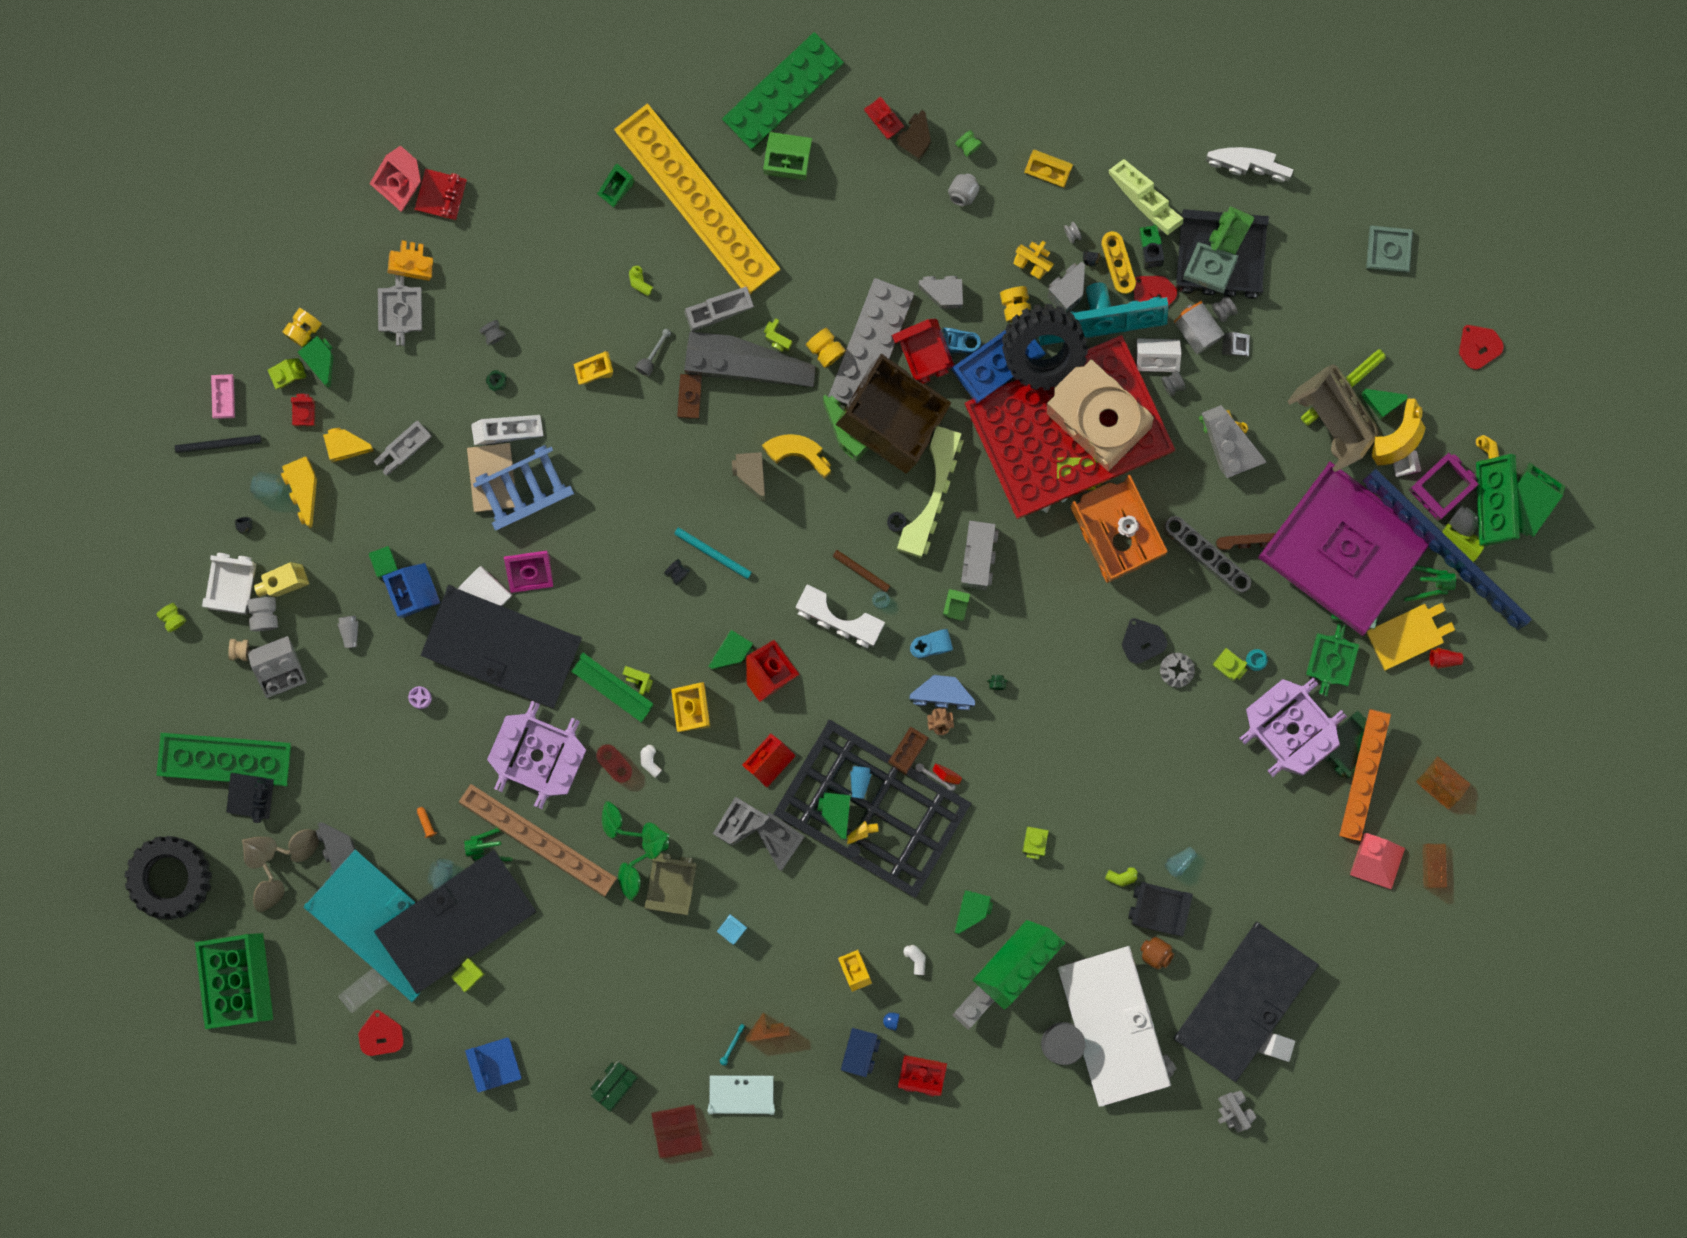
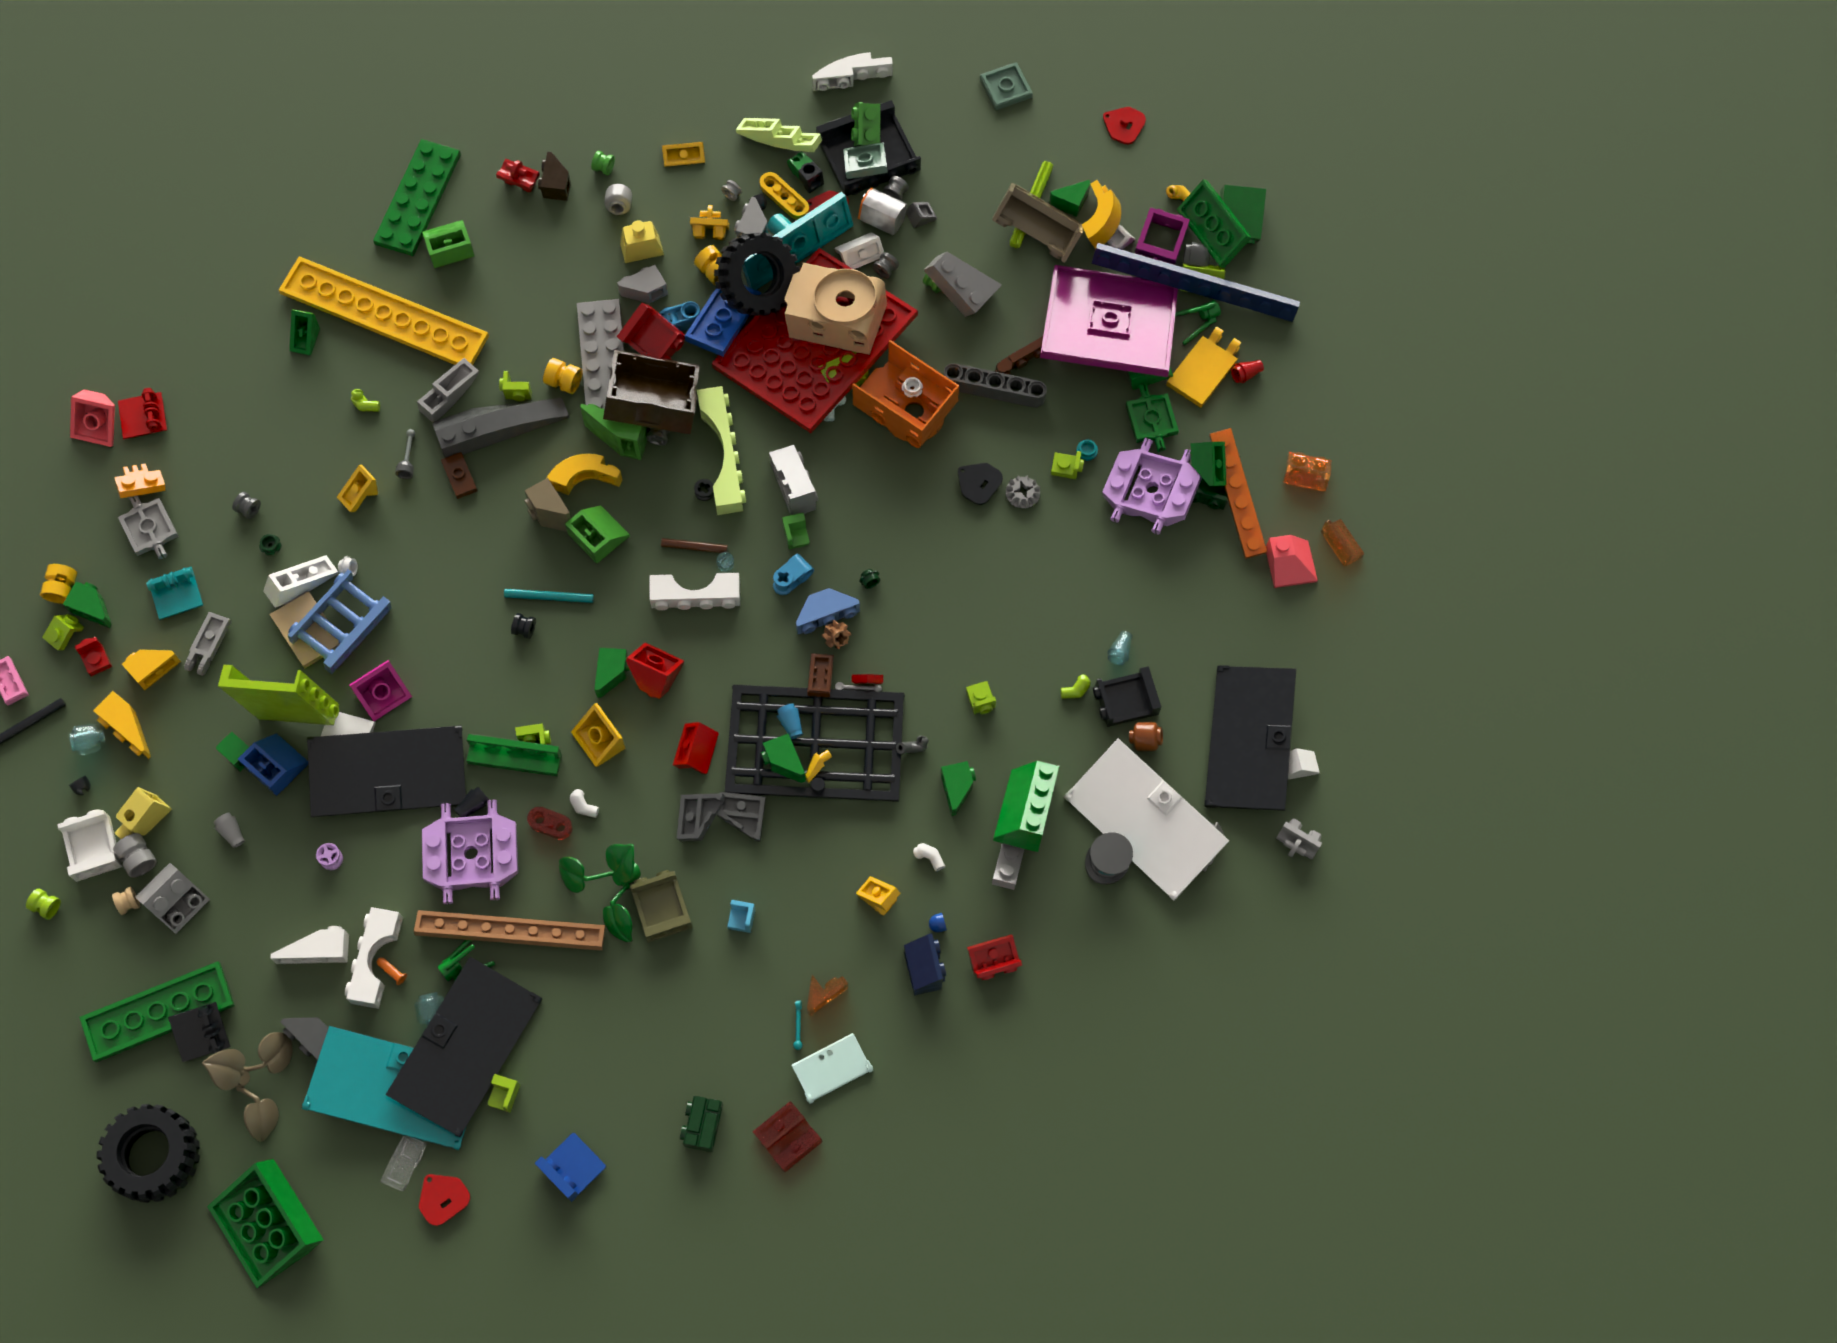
camera: 30 degrees left, 15 degrees down
(379, 774) = (318, 947): none -> white slope
(396, 384) = (175, 592): none -> teal hinge
(398, 826) = (380, 928): none -> white arch
(420, 528) = (280, 701): none -> lime panel
(553, 437) = (348, 563): none -> white plate
(558, 712) = (472, 802): none -> black cone
(783, 516) = (596, 532): none -> bright green slope
(955, 856) = (913, 746): none -> dark grey arm
(961, 247) = (640, 241): none -> light yellow torso
(1353, 736) = (1210, 462): none -> green slope

